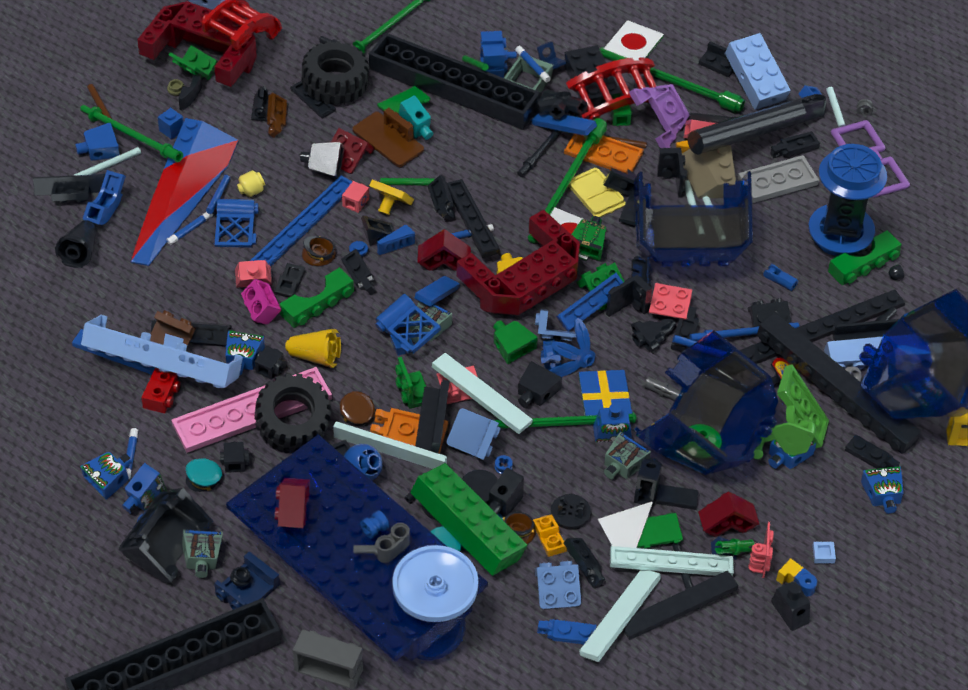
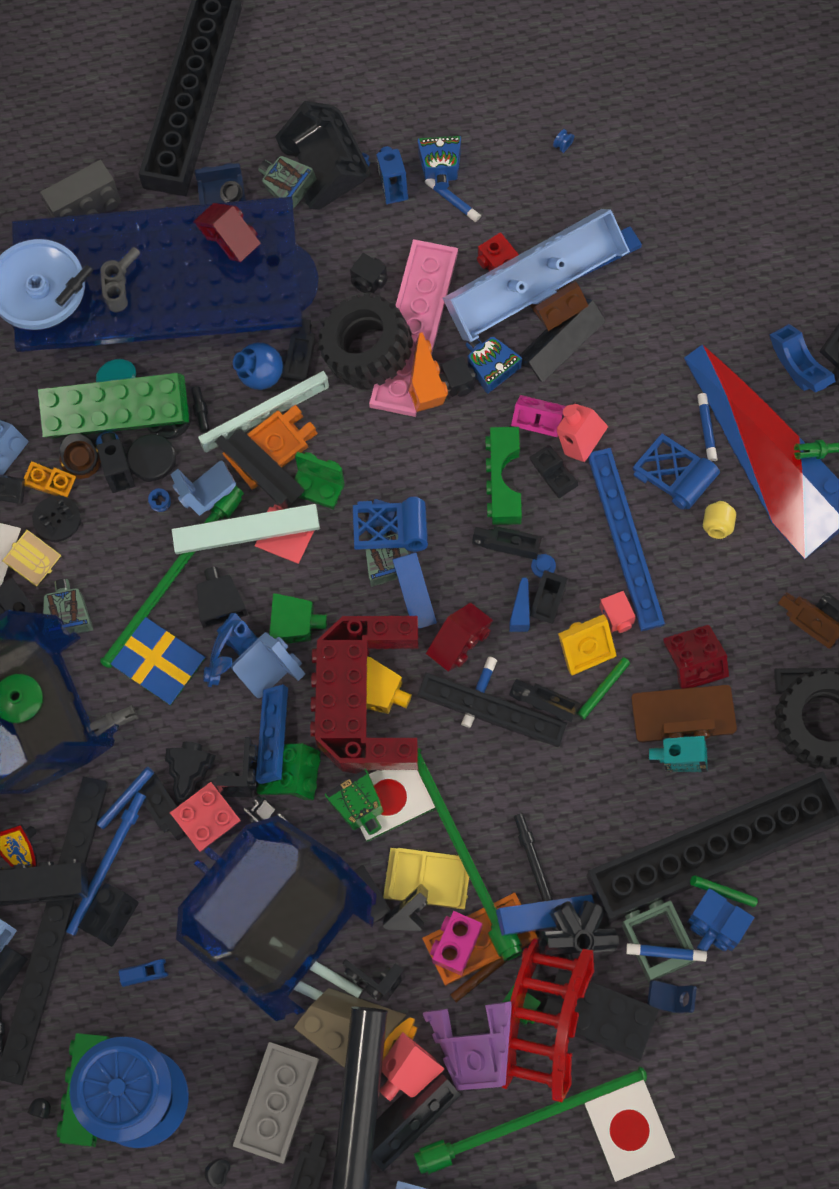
camera: 135 degrees right, 20 degrees up
(31, 415) = (563, 140): none -> blue bush
(77, 245) = (758, 303): black cone -> none
(202, 474) = (372, 235): teal piece -> none
(213, 203) = (732, 481): blue bar -> none
(294, 361) = (425, 383): none -> orange slope
(316, 347) = (436, 426): yellow cone -> none
(318, 250) = (571, 524): reddish brown piece -> none
(324, 159) = (693, 613): torso -> none
(356, 408) = (334, 415): reddish brown piece -> none
(374, 524) = (146, 285): blue wheel -> none
(394, 102) = (728, 772): green piece -> none
(419, 549) = (74, 285): none -> black bar
(610, 502) = (31, 558): none -> piece
(611, 422) = (105, 627): blue torso -> none
(618, 149) = (462, 944): none -> dark pink brick

